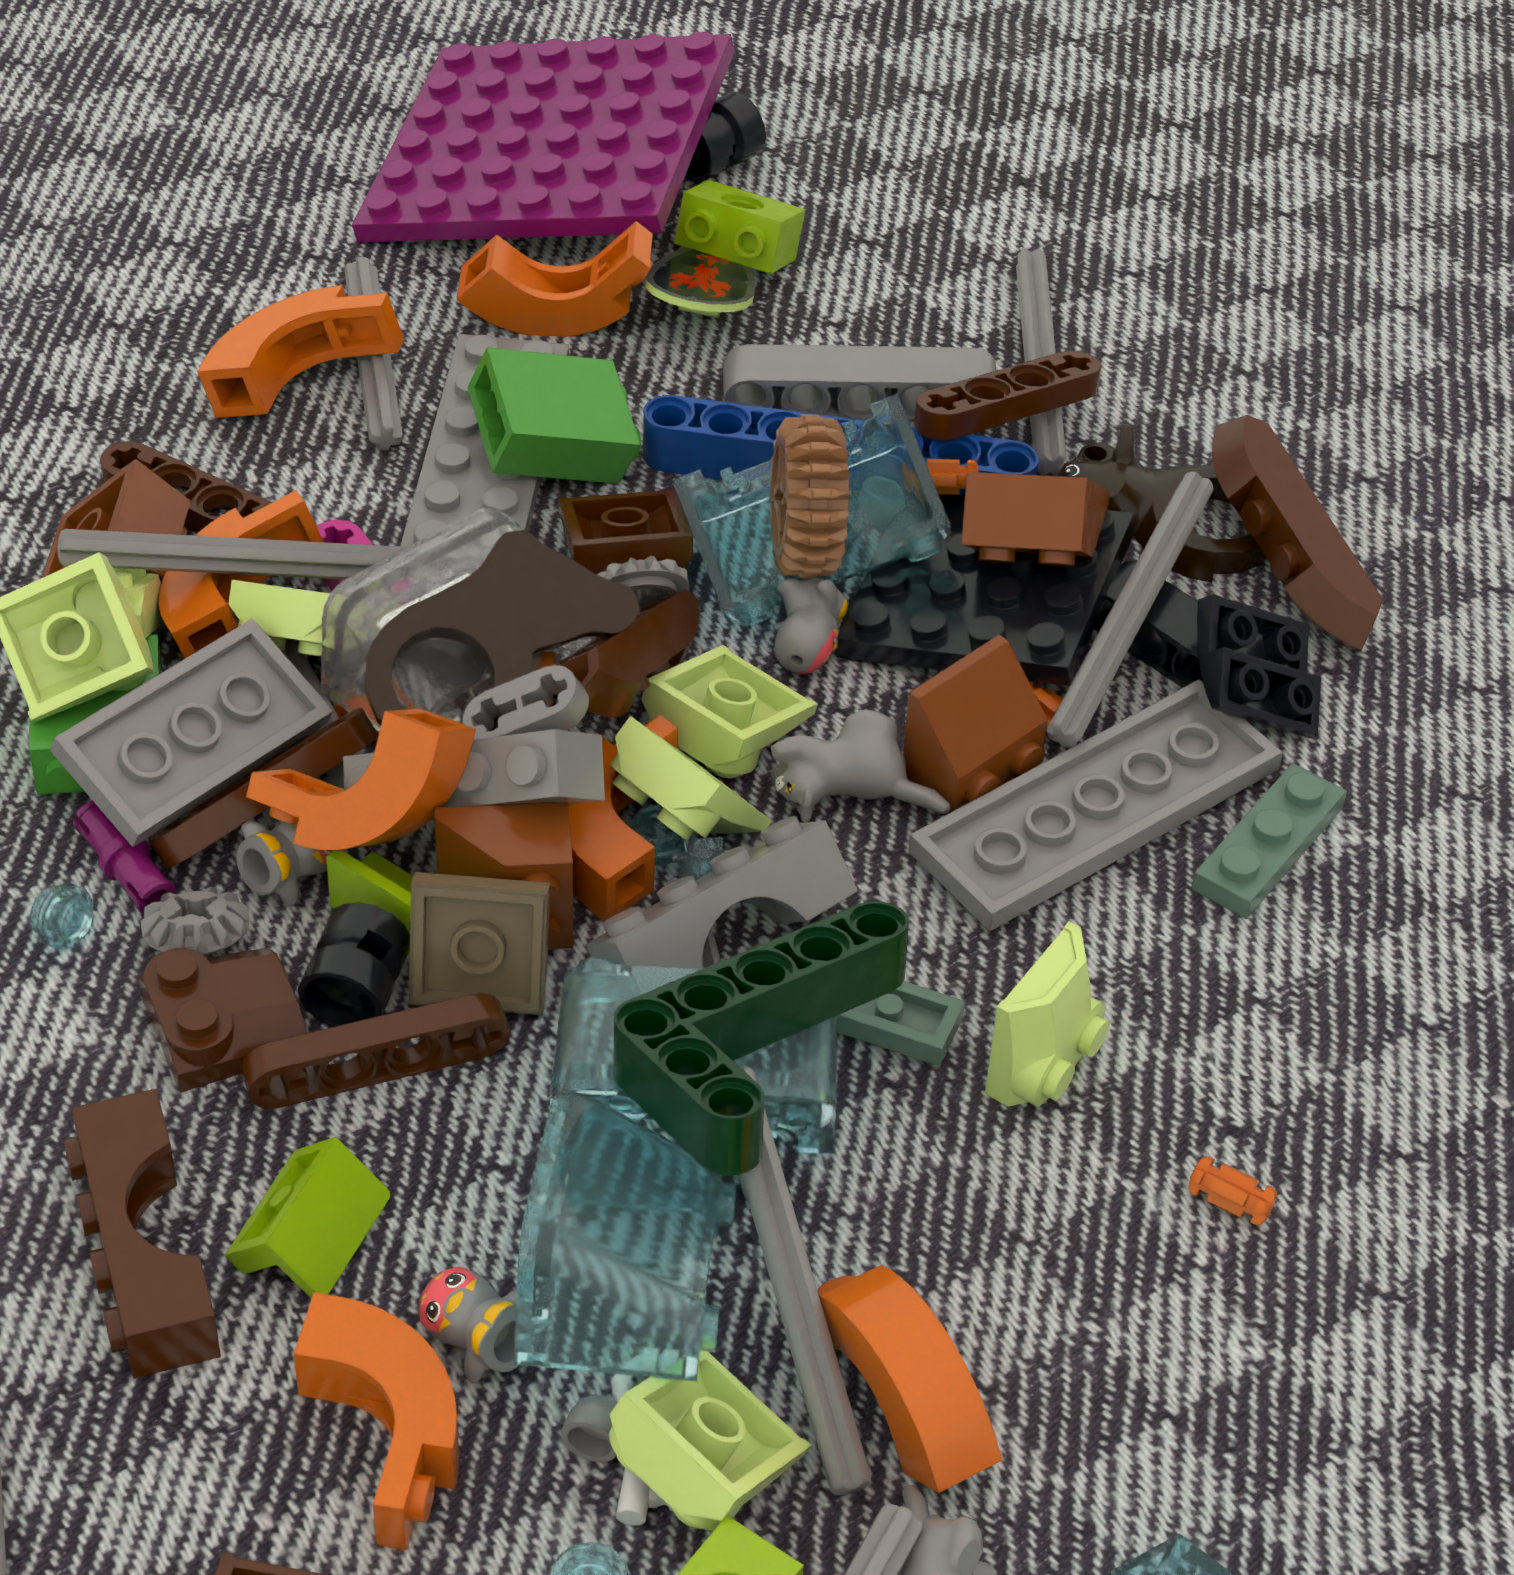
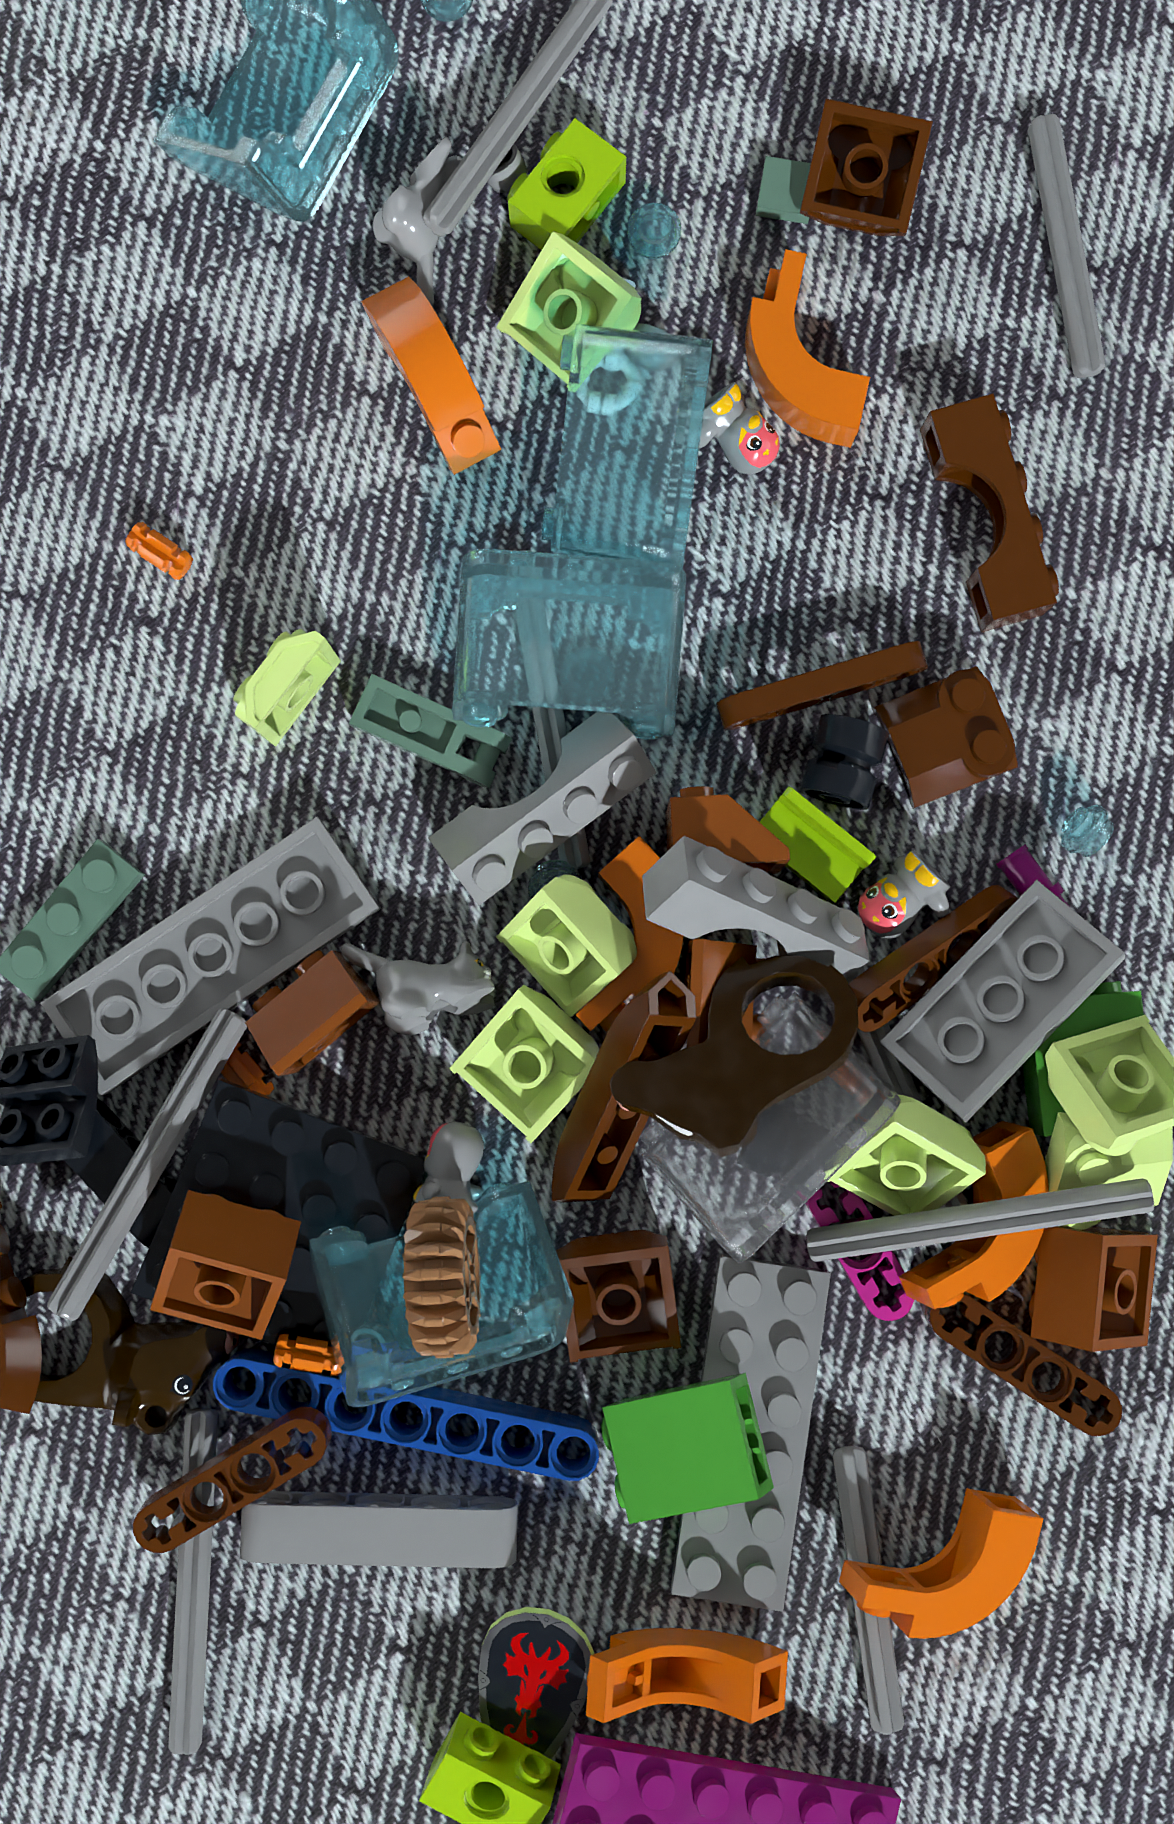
camera: 175 degrees left, 40 degrees up
(195, 921) = (951, 822): light grey gear -> none
(312, 1217) = (866, 530): lime panel -> none
(411, 772) = (854, 874): orange arch -> none
(479, 939) = (745, 766): dark tan tile -> none
(526, 704) = (711, 948): light grey beam -> none
(649, 578) = (604, 1212): light grey gear -> none
(682, 1038) = (533, 601): dark green beam -> none
(805, 1321) = (506, 428): light grey axle -> none

